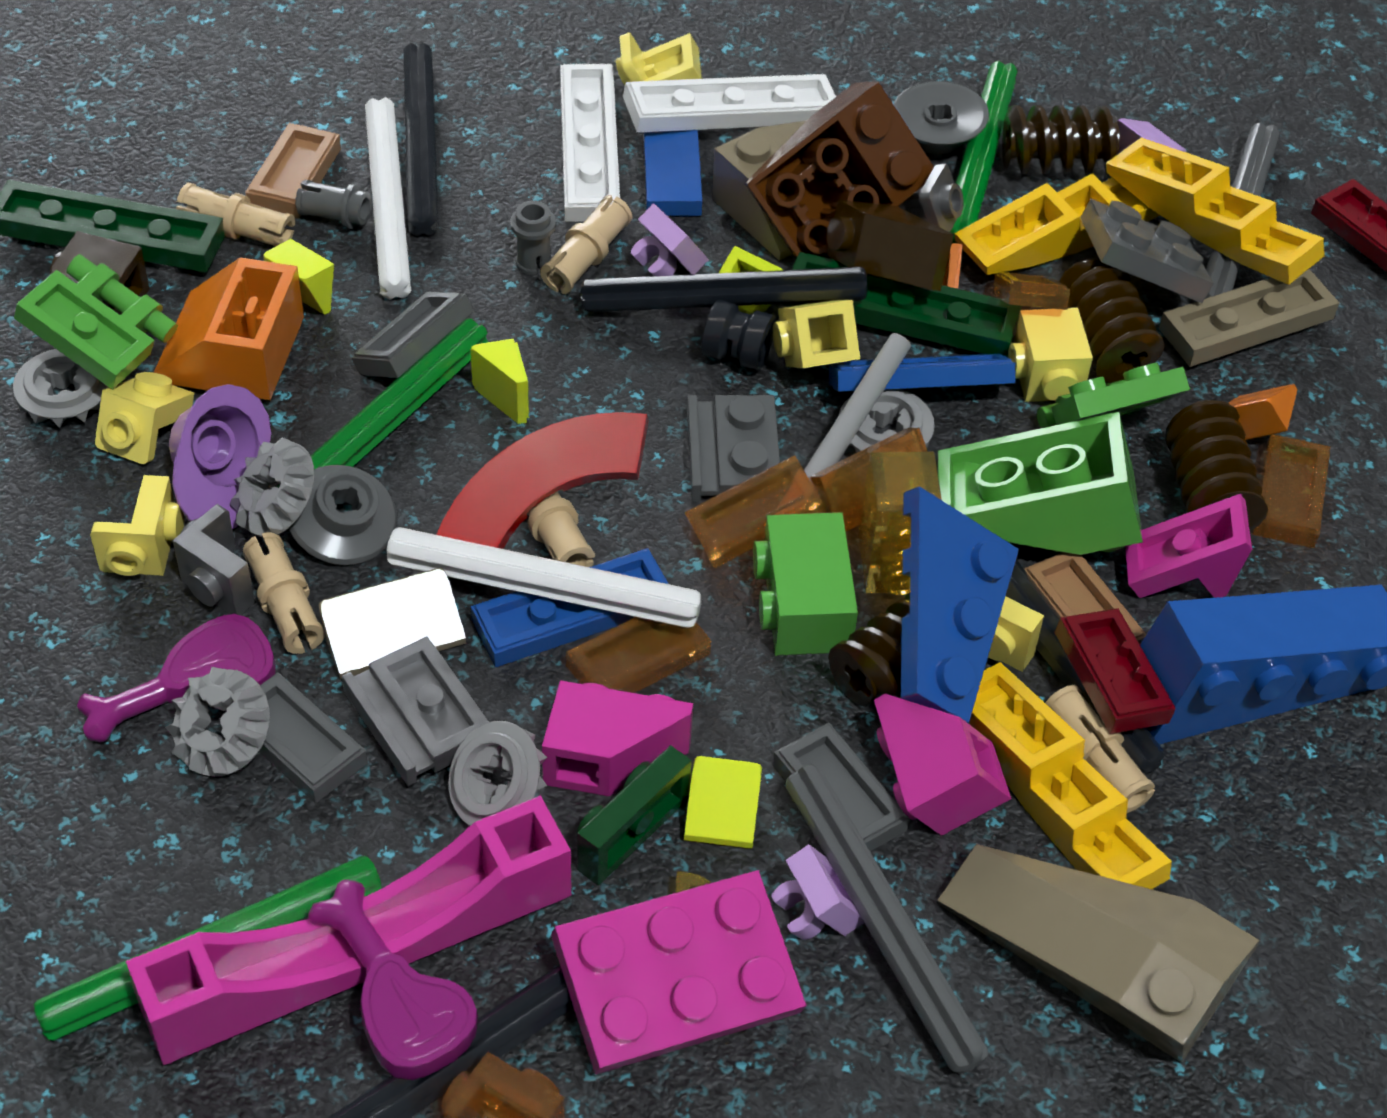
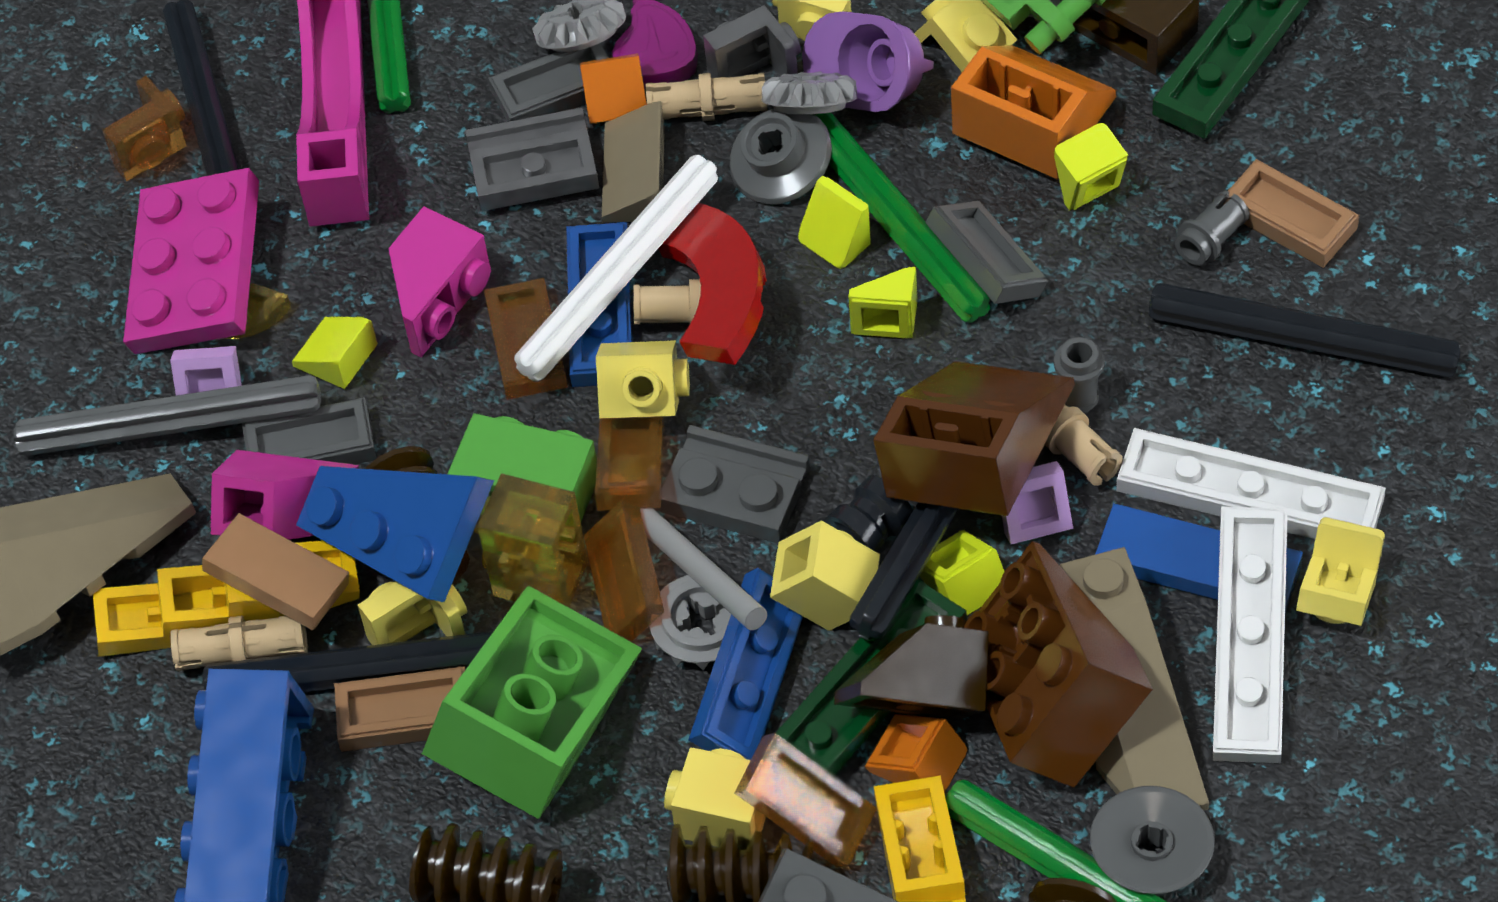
camera: 120 degrees right, 5 degrees up
(238, 215) = (1195, 166): tan pin -> none
(301, 663) = (612, 87): none -> orange tile
(387, 199) = (1270, 287): white axle -> none
(408, 1017) = (238, 79): magenta piece -> none
(418, 445) = (835, 224): none -> neon yellow slope
(490, 748) = (426, 186): light grey gear -> none
(647, 243) = (969, 435): none -> reddish brown slope
(647, 800) = (342, 258): dark green plate -> none
(672, 519) = (640, 379): none -> light yellow brick
(938, 200) = (972, 752): flat silver bracket -> none
(1035, 710) = (275, 571): none -> medium nougat tile
(1093, 397) = (602, 809): bright green plate -> none
(1114, 671) = (315, 655): dark red plate -> none
(1199, 544) = (395, 802): dark pink slope -> none

